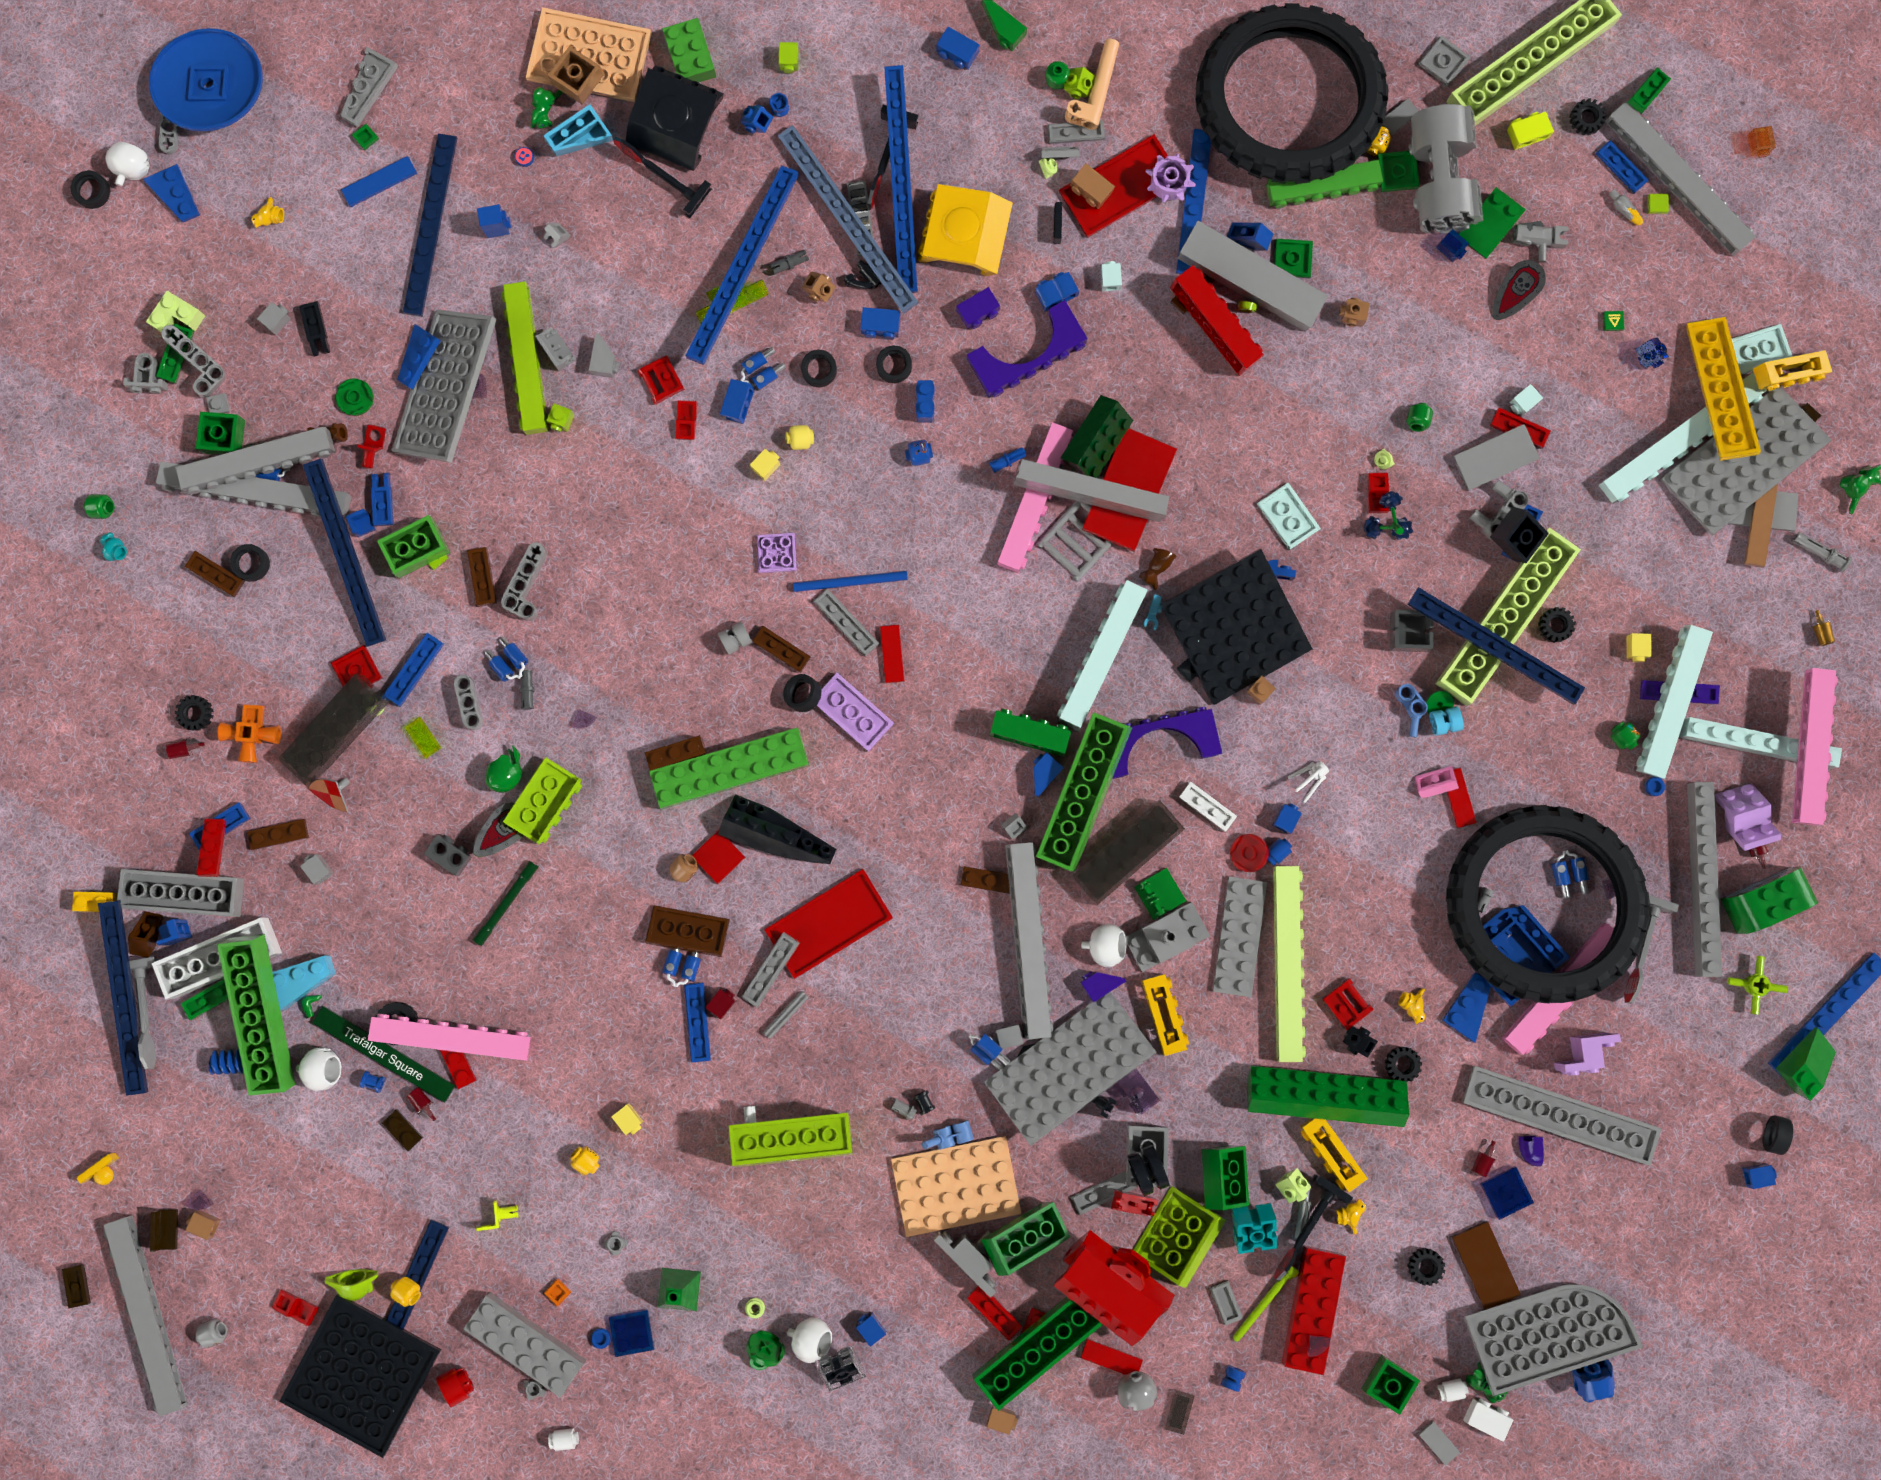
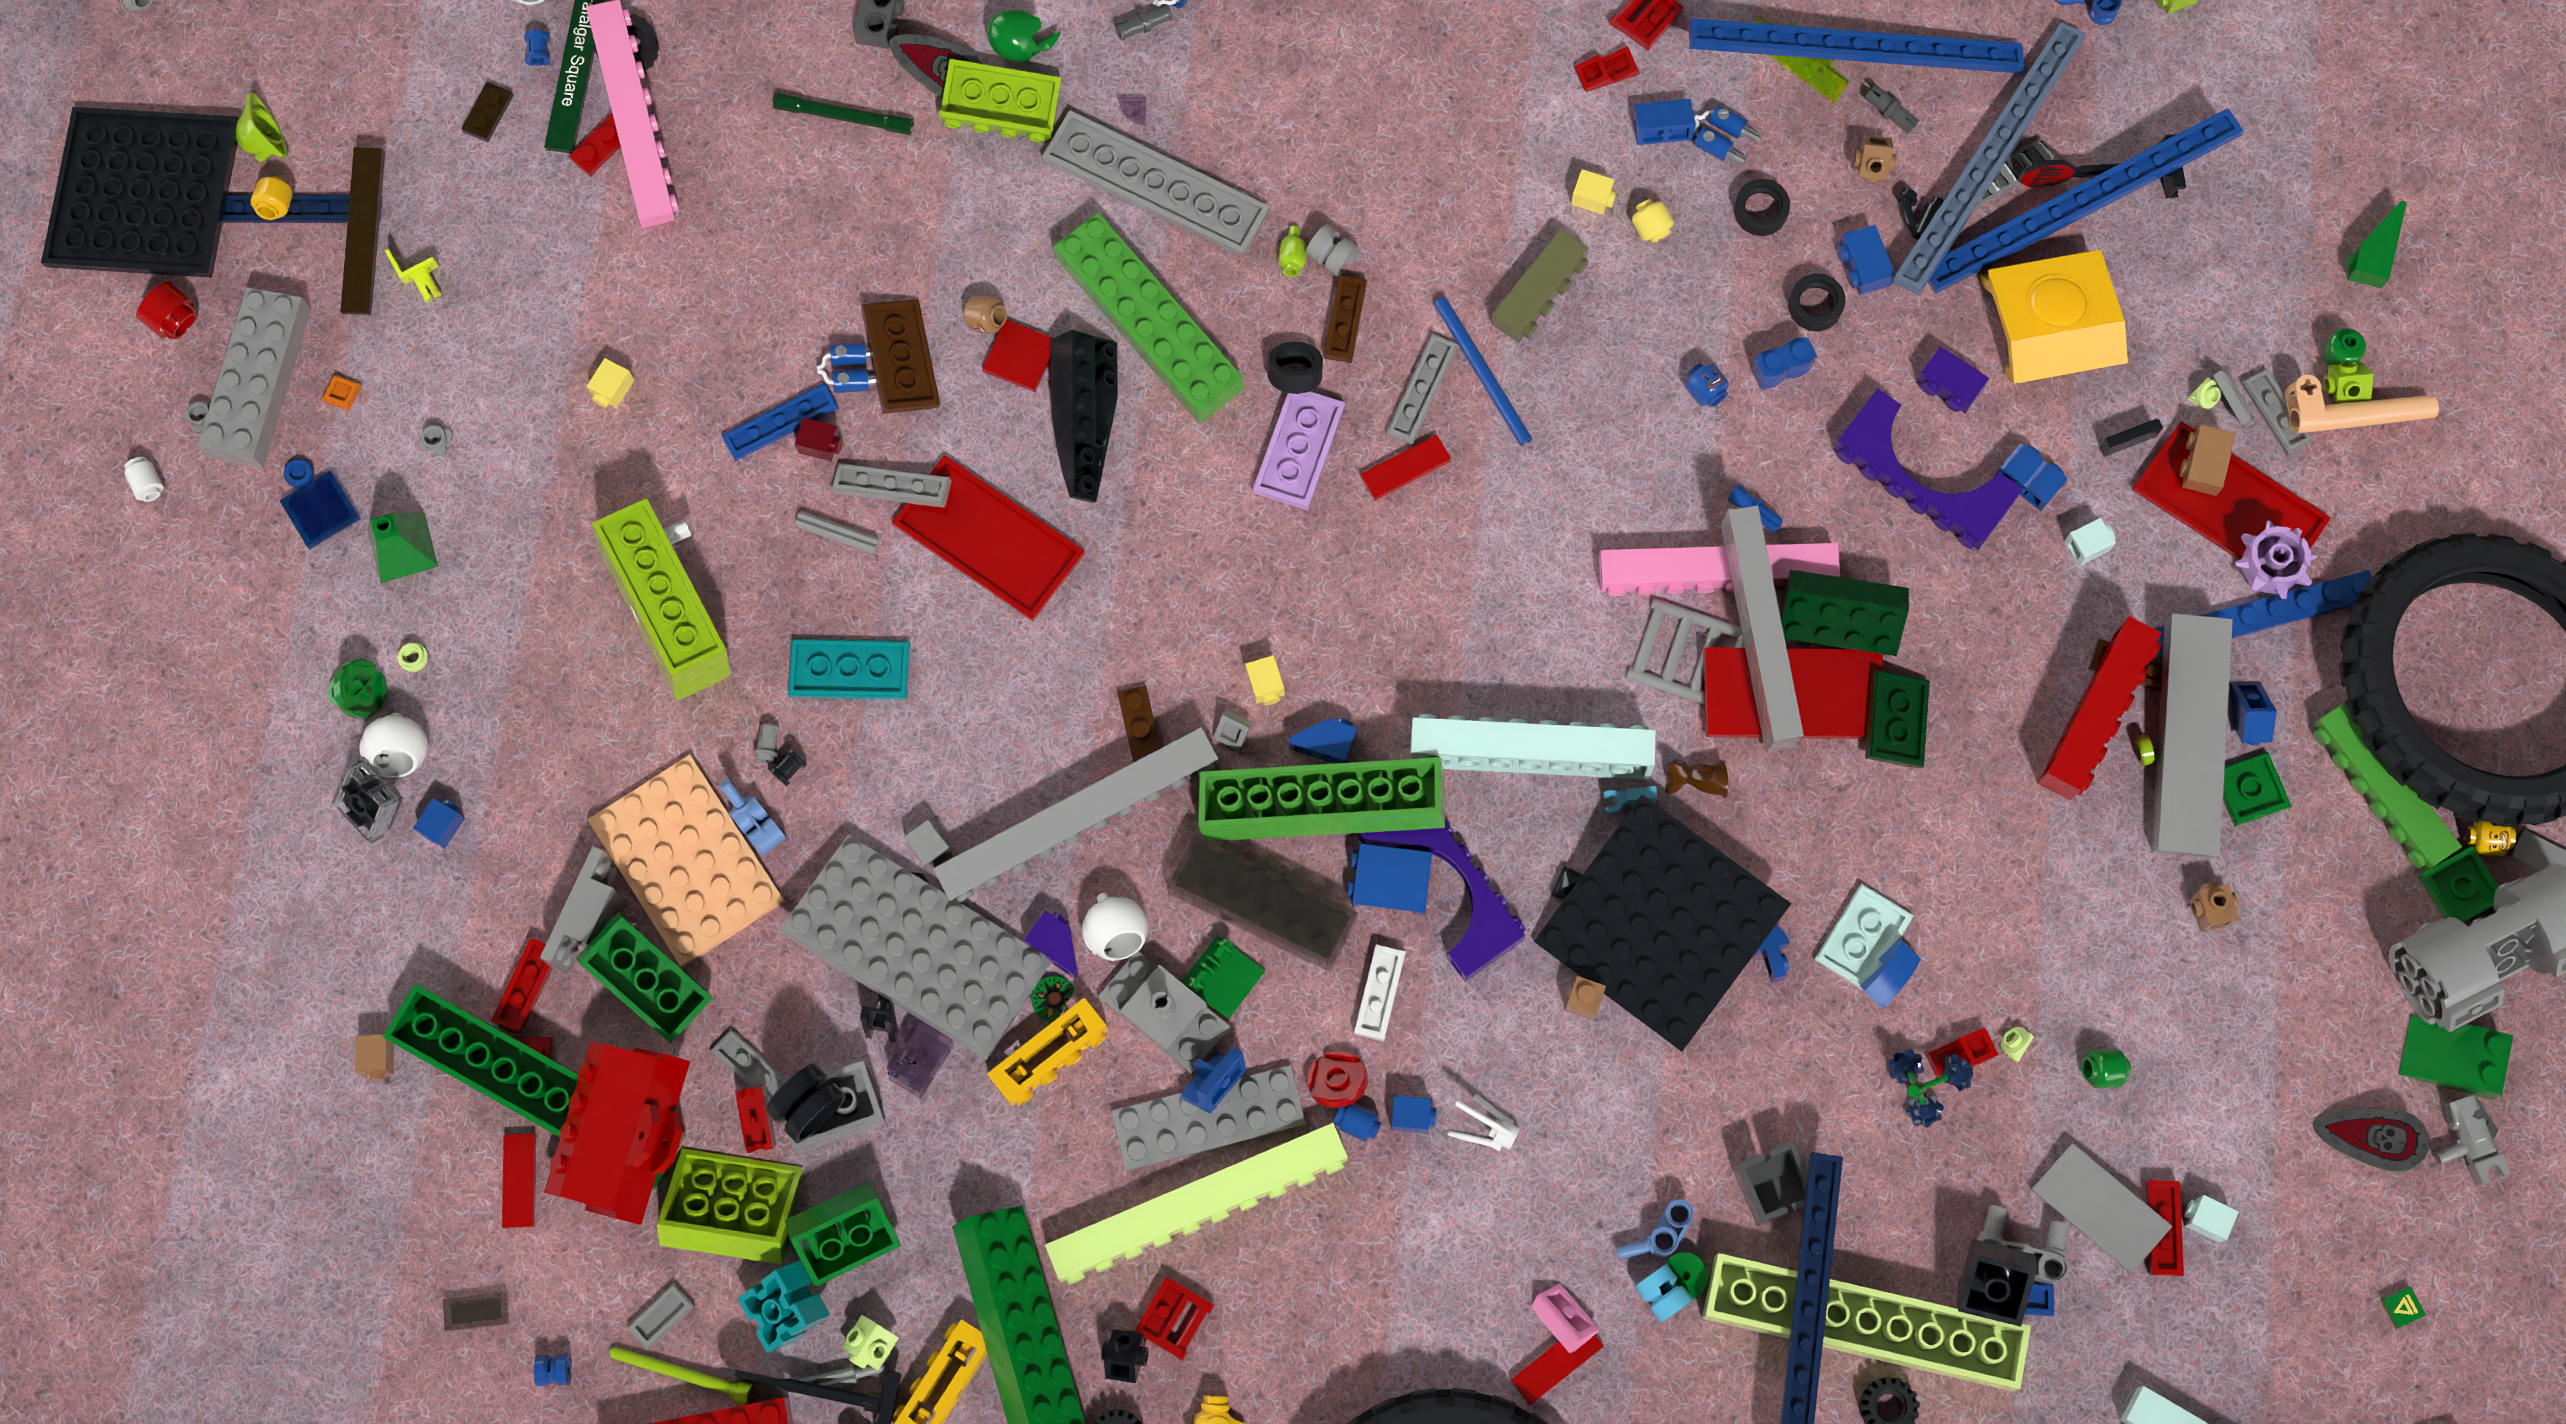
camera: 70 degrees right, 10 degrees down
(295, 1307) = (204, 78): red slope -> none
(422, 1104) = (531, 119): dark red piece -> none
(452, 1240) = (362, 231): none -> dark brown tile
(584, 1160) = (532, 352): yellow head -> none
(640, 727) = (1156, 183): none -> light grey plate
(675, 752) = (1140, 238): reddish brown brick -> none
(723, 662) = (1292, 253): none -> lime plant
(776, 553) = (1477, 259): lavender tile -> none
(812, 523) = (1540, 285): none -> olive brick
(876, 1041) = (849, 669): none -> teal tile
(957, 48) = (2310, 202): blue brick -> none
(988, 1050) = (894, 822): blue piece -> none
(992, 794) = (1265, 680): none -> light yellow brick
(1030, 733) = (1374, 694): green brick -> none
(1130, 999) = (1051, 997): none -> piece
(1137, 1391) = (483, 1230): light grey cylinder -> none
(1145, 772) = (1390, 878): none -> blue panel
(1170, 437) = (1897, 719): none -> dark green tile
(1221, 924) = (1214, 1079): none -> blue panel
(1316, 506) = (1896, 969): none -> blue slope
(1453, 246) = (2391, 1013): clear blue brick -> none
(1652, 353) = (2382, 1384): clear blue brick -> none

